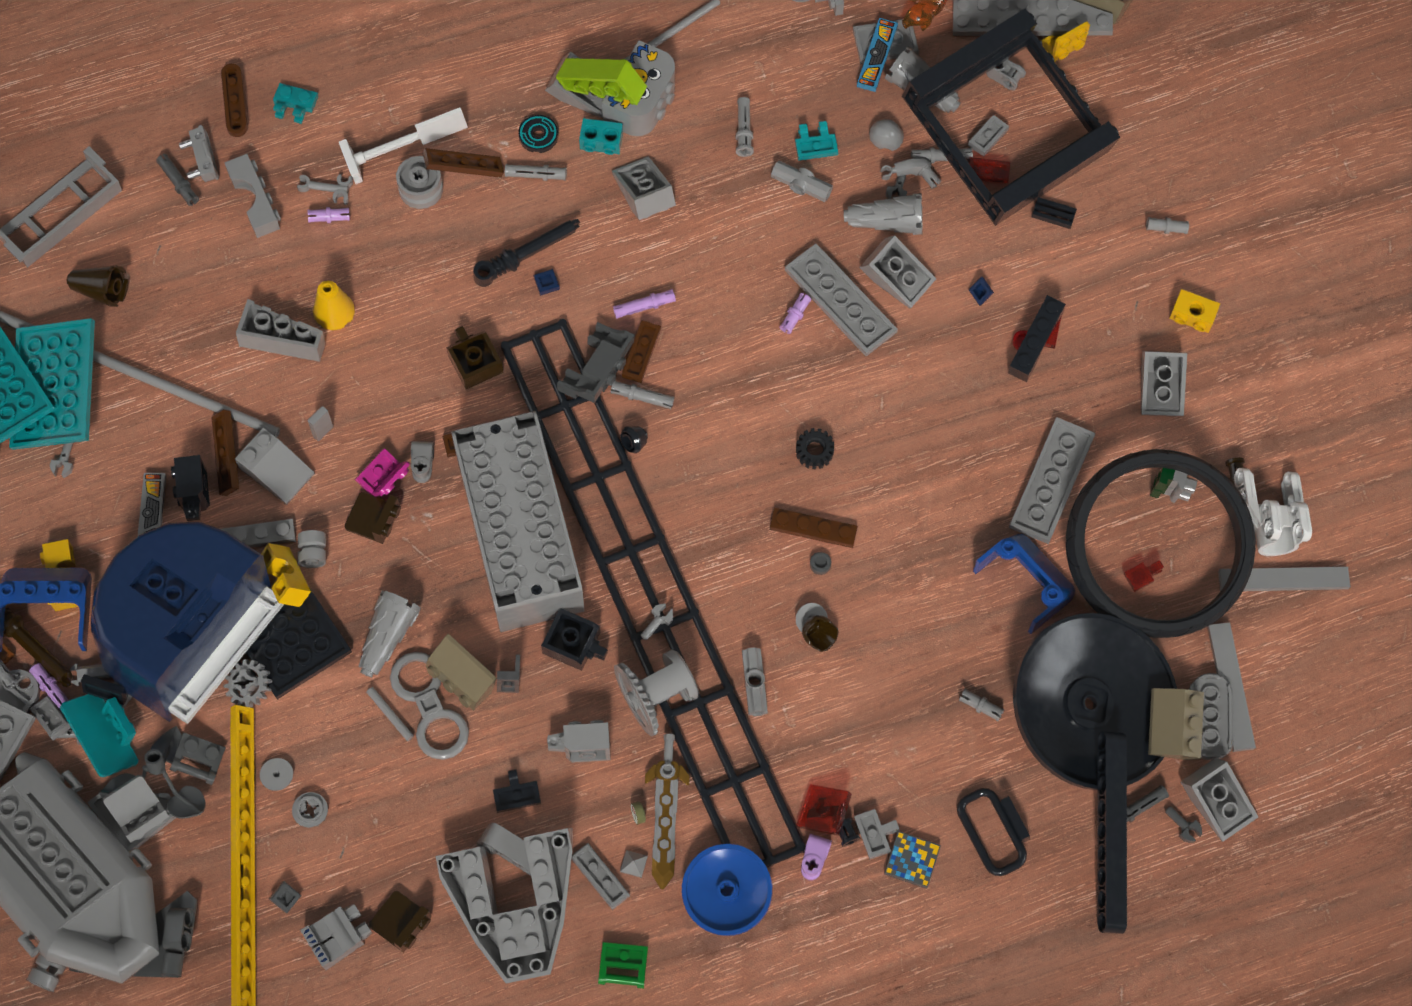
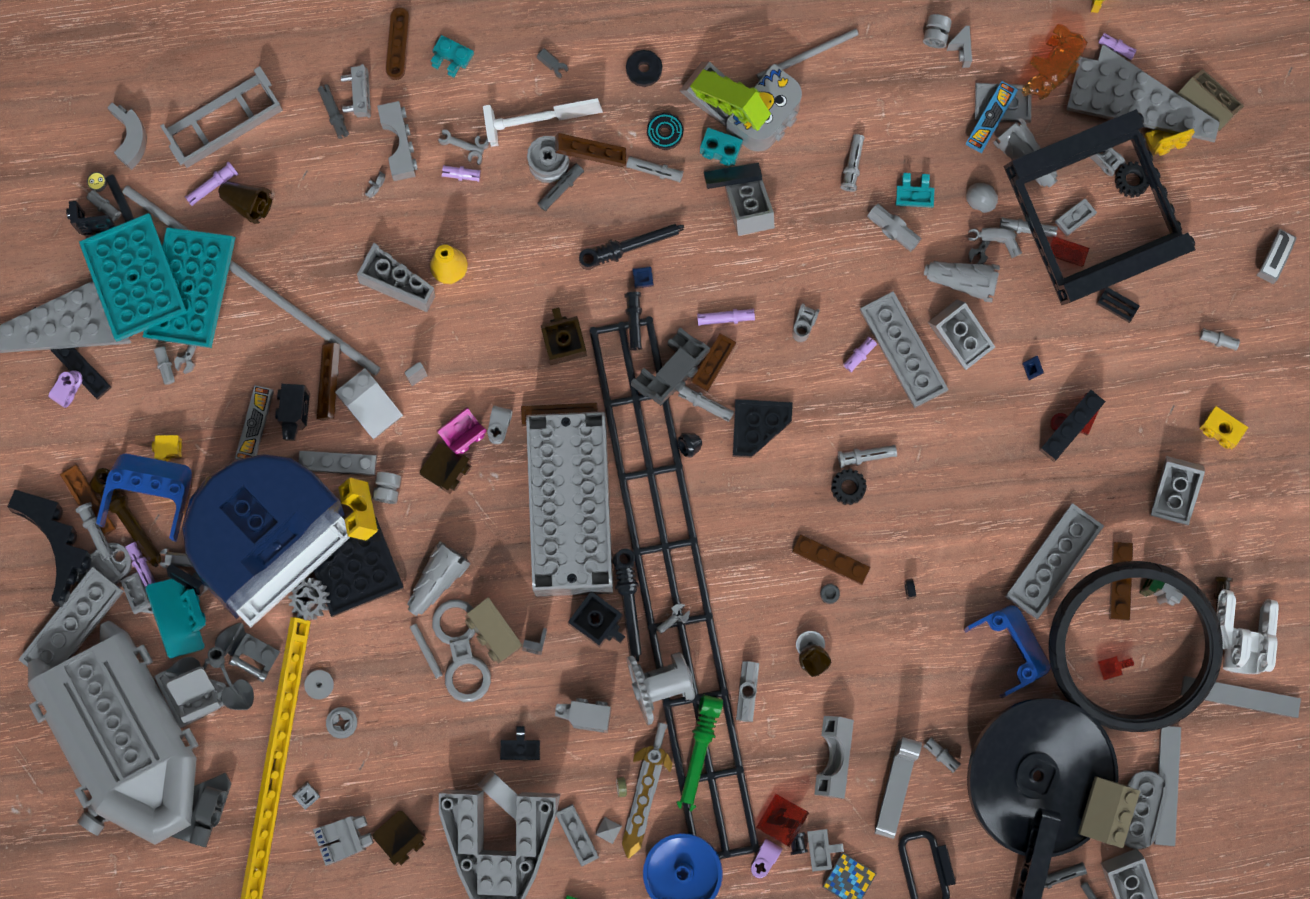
camera: 15 degrees right, 10 degrees up
(39, 472) = (164, 365): none -> light grey axle
(71, 263) = (219, 177): none -> lavender pin
(238, 246) = (376, 186): none -> light grey piece
(403, 88) = (551, 62): none -> dark grey bar
(443, 202) = (565, 182): none -> dark grey pin
(506, 86) = (644, 78): none -> black tile
(544, 317) = (634, 311): none -> black pin
(598, 600) = (627, 588): none -> black piece
(619, 163) = (732, 175): none -> black tile
(703, 405) = (758, 424): none -> black plate
(717, 734) = (709, 708): none -> green piece
(729, 291) = (805, 319): none -> light grey piece
(817, 416) = (890, 451): none -> light grey pin
(863, 704) = (838, 735): none -> light grey arch
(905, 540) = (910, 589): none -> black tile
(941, 712) = (893, 799): none -> light grey beam
(1033, 97) = (1124, 186): none -> black tyre
(1129, 493) = (1121, 589): none -> reddish brown plate
(1204, 135) = (1276, 256): none -> slope

